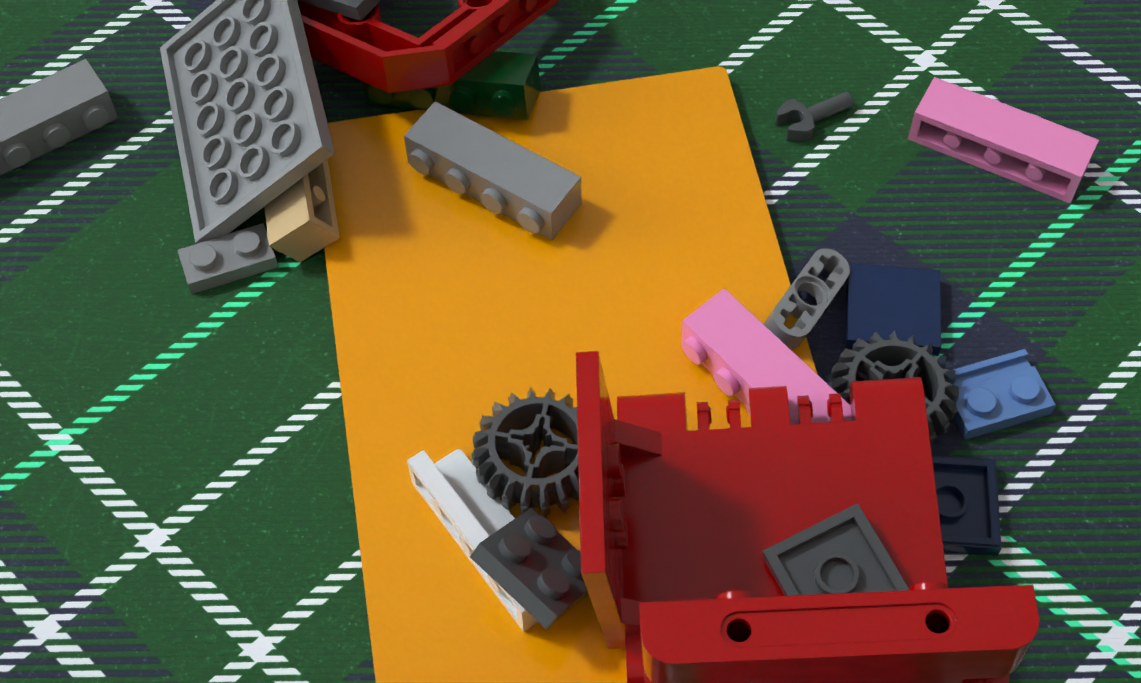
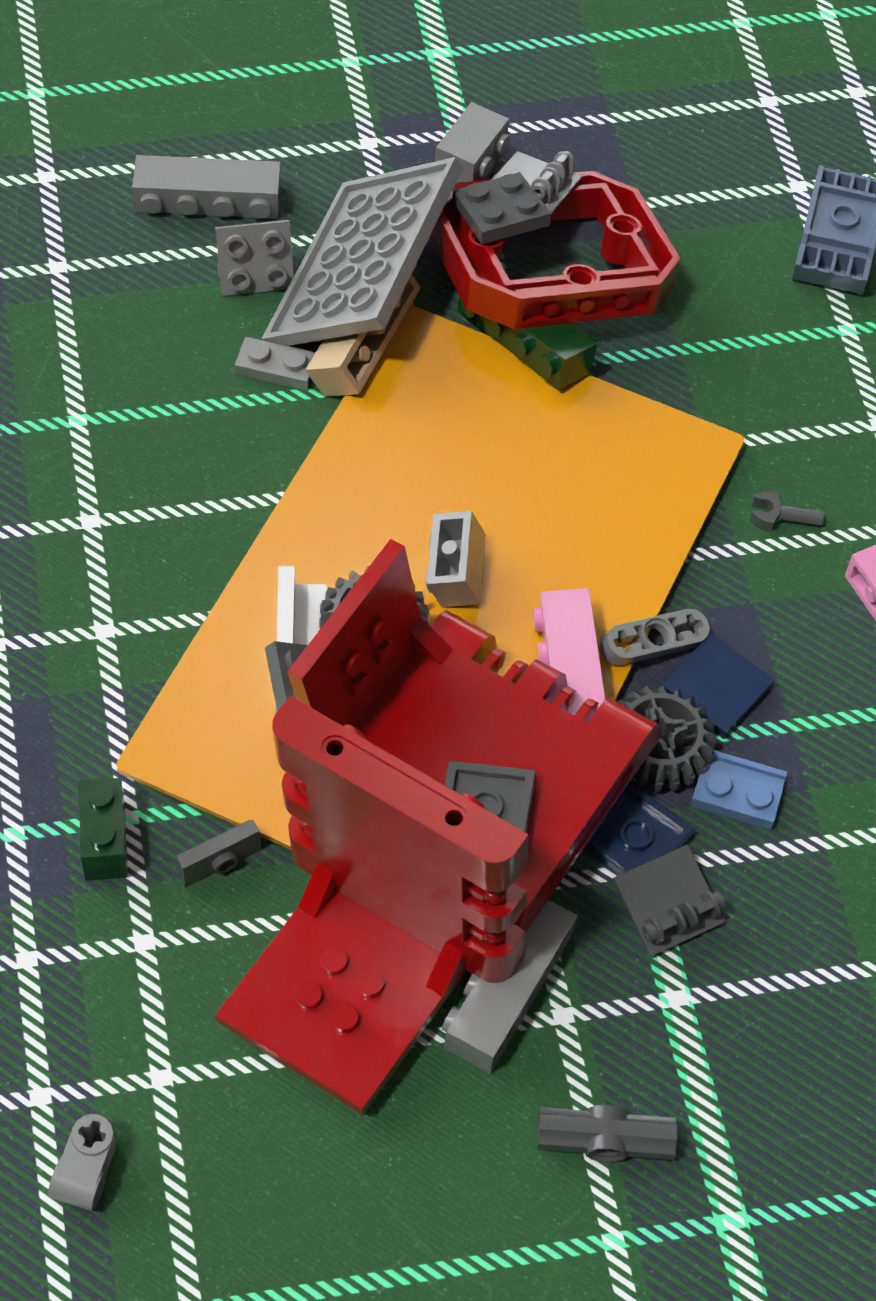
camera: 30 degrees right, 0 degrees up
(130, 165) = (254, 257): none -> light grey hinge
(493, 170) = (501, 410): light grey brick -> none
(567, 329) = (456, 559): none -> brick
(1037, 544) = (669, 900): none -> dark grey hinge

